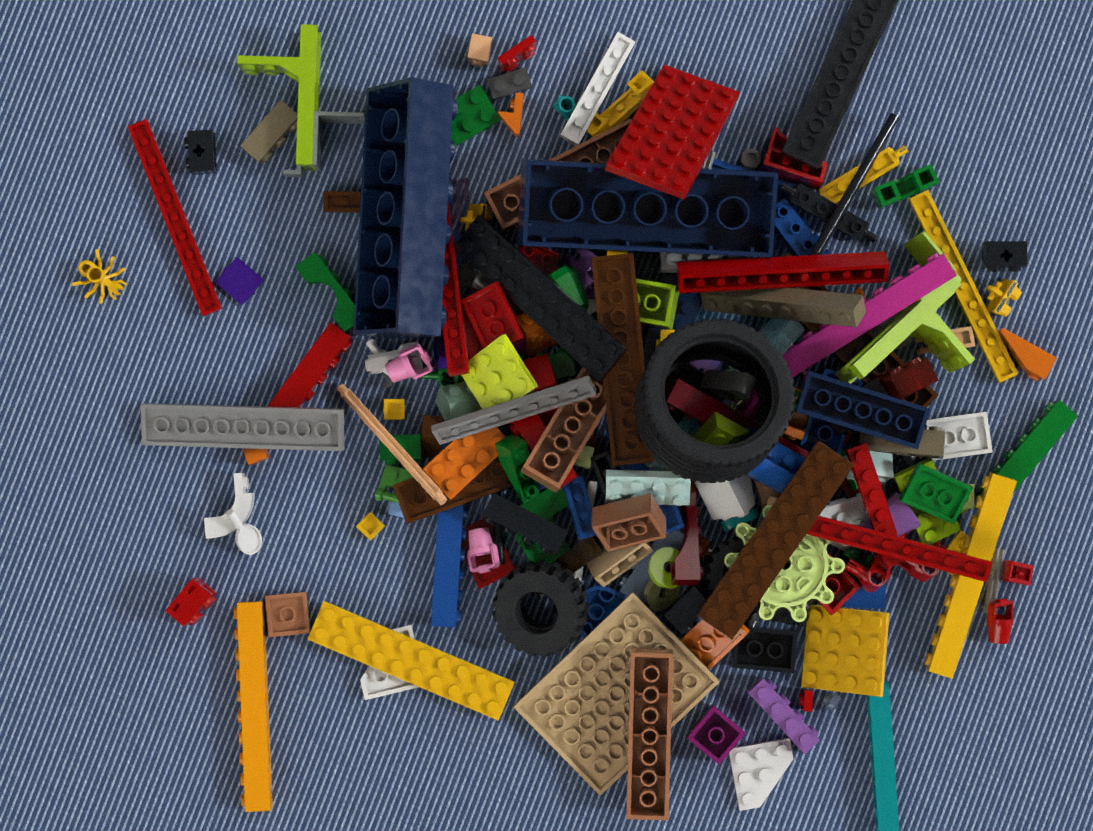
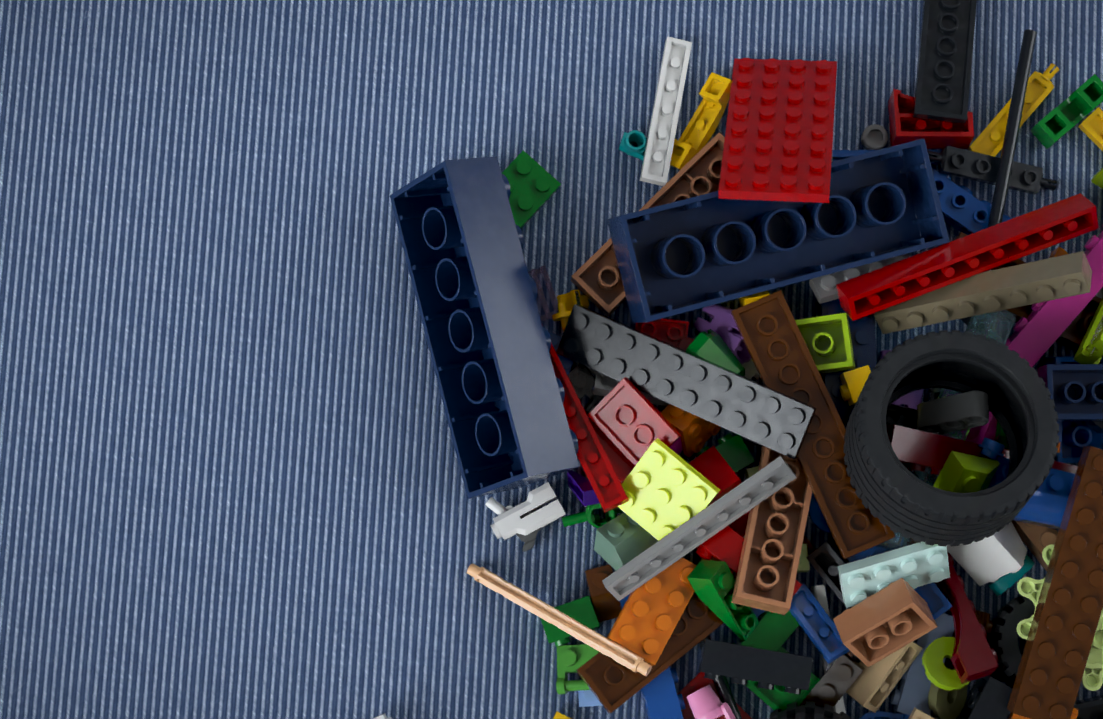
camera: 15 degrees left, 5 degrees down
(98, 276) = (129, 526): yellow animal -> none
(175, 217) = (203, 426): red plate -> none
(207, 162) = (222, 346): black brick -> none
(239, 281) = (305, 477): dark purple piece -> none
(242, 427) = (367, 656): light grey plate -> none
(255, 456) = (392, 682): orange brick -> none
(271, 133) = (289, 286): dark tan brick -> none
(309, 118) = (309, 200): lime piece -> none
(313, 368) = (423, 574): red brick -> none
(315, 271) = (395, 436): green arch -> none
(341, 202) = (402, 342): reddish brown plate -> none
(394, 409) = (545, 574): yellow plate -> none
(404, 367) = (542, 518): bright pink piece -> none
(479, 50) = (509, 109): light nougat brick -> none
(509, 83) = (557, 138): dark grey plate -> none
(513, 120) = (576, 179): orange slope -> none
(523, 50) = (562, 93): red plate -> none
(746, 419) = (991, 448): none -> blue plate

